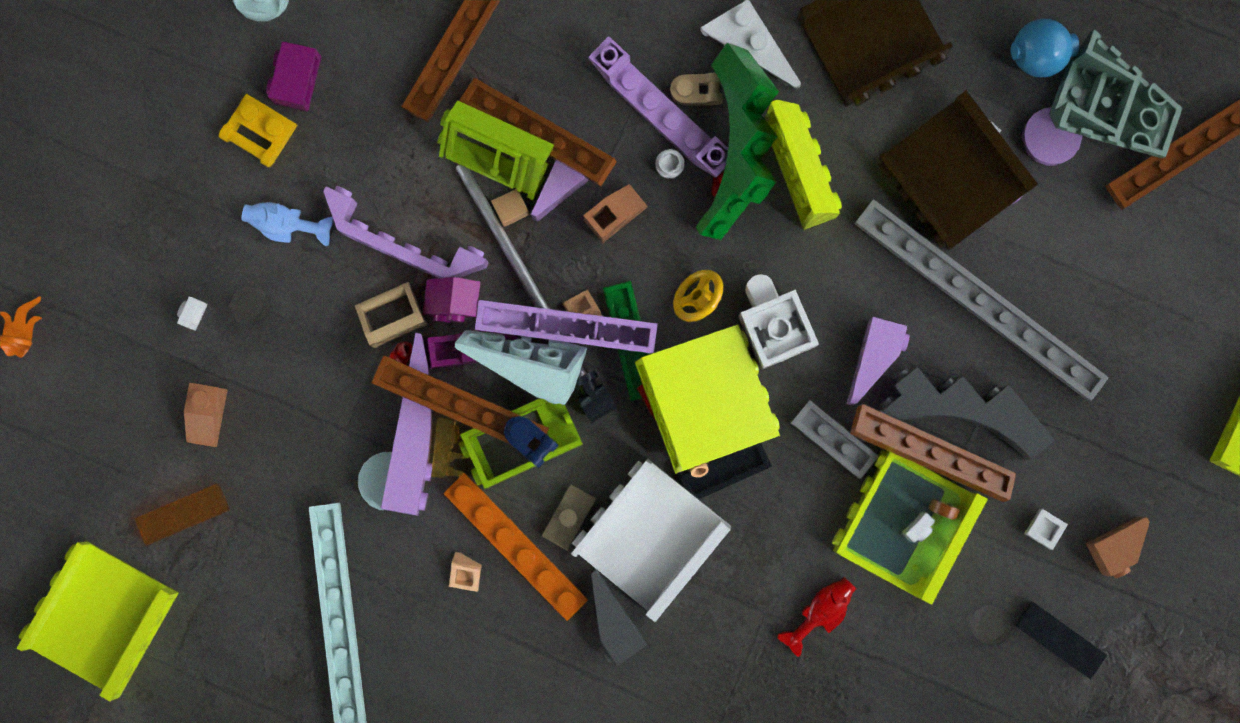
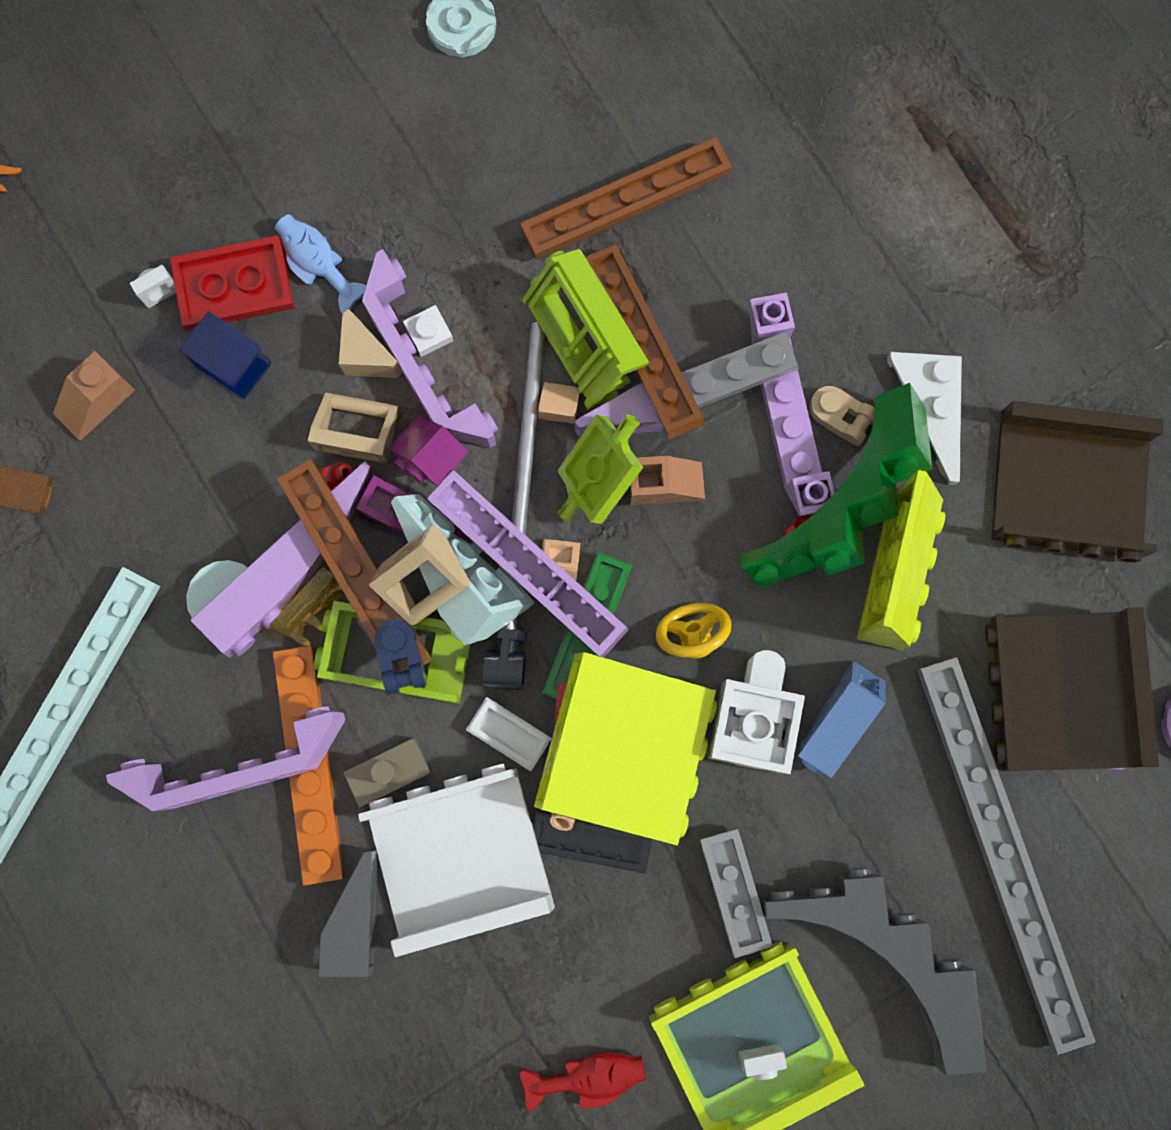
camera: 30 degrees right, 5 degrees down
(240, 276) = (233, 281): none -> red plate
(263, 122) = (369, 147): yellow plate -> none
(273, 326) = (225, 355): none -> clear blue piece
(293, 76) = (433, 122): magenta brick -> none
(361, 262) = (362, 353): none -> tan slope
(391, 219) = (428, 330): none -> white plate
(424, 628) = (147, 784): none -> lavender slope
(464, 573) = (233, 749): light nougat slope -> none
(499, 360) = (429, 546): none -> tan tile
(568, 234) = (599, 469): none -> lime plate
(613, 107) = (741, 370): none -> light grey plate
(627, 441) = (508, 734): none -> white tile
(669, 163) = (759, 470): white plate -> none
(829, 287) = (843, 720): none -> medium blue slope
(879, 349) = (851, 828): lavender slope -> none
(933, 453) = (837, 988): dark orange plate -> none
(944, 509) = (806, 1060): dark orange tile -> none

